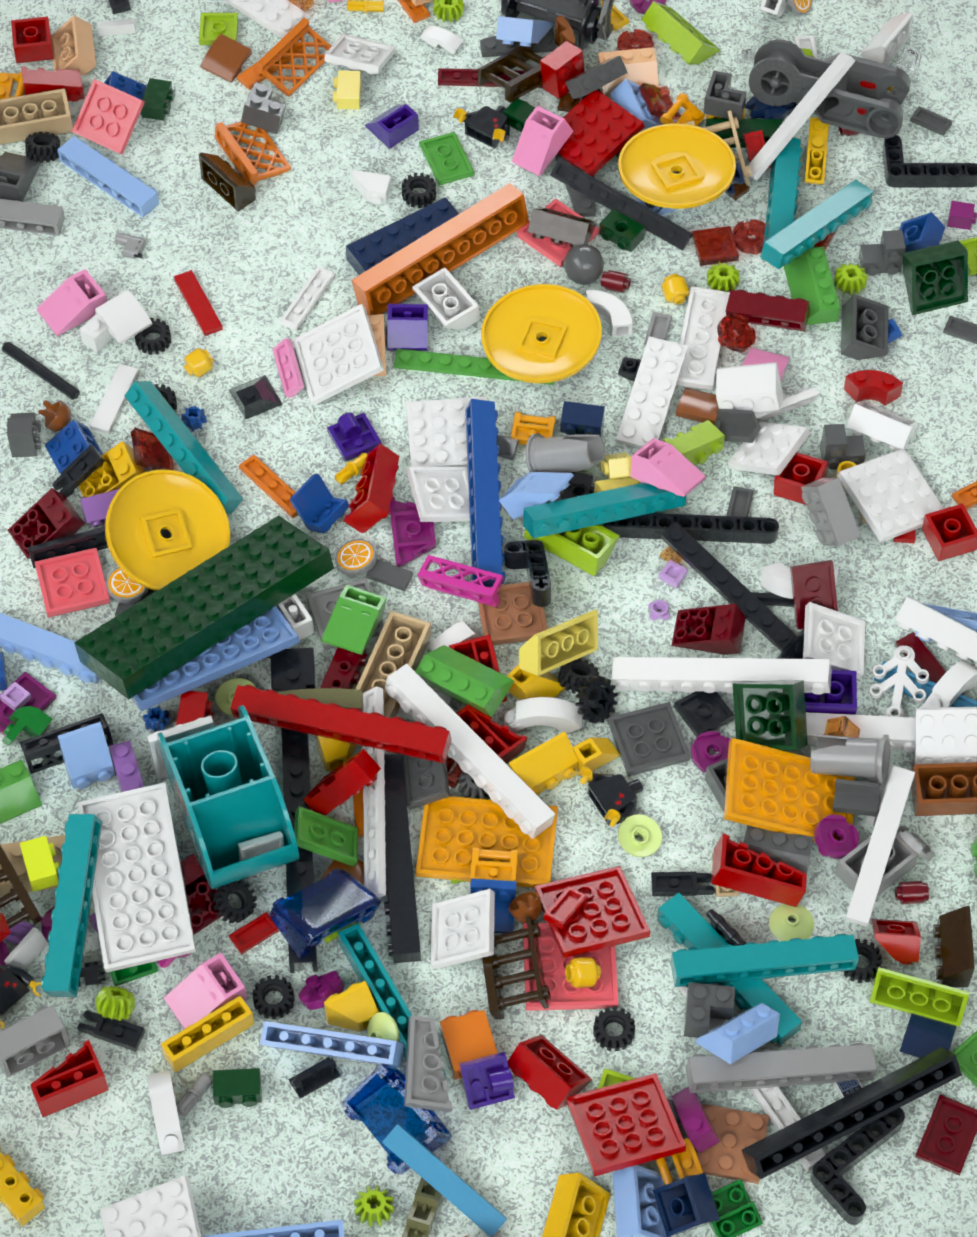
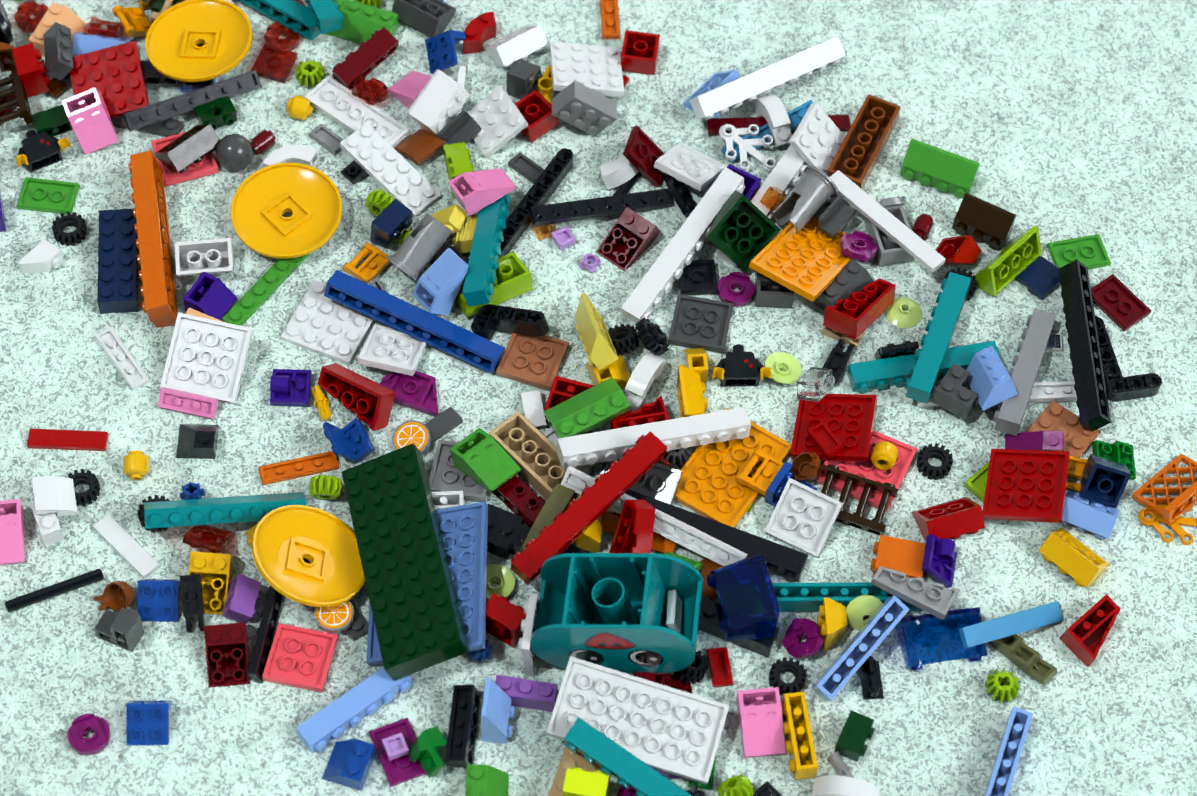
camera: 65 degrees left, 0 degrees up
(256, 511) = (325, 487): none -> lime gear
(457, 587) = (490, 380): dark pink fence -> none
(607, 398) = (378, 201): none -> lime gear
(632, 870) = (815, 384): none -> clear brick
(825, 359) = (442, 50): none -> blue bracket

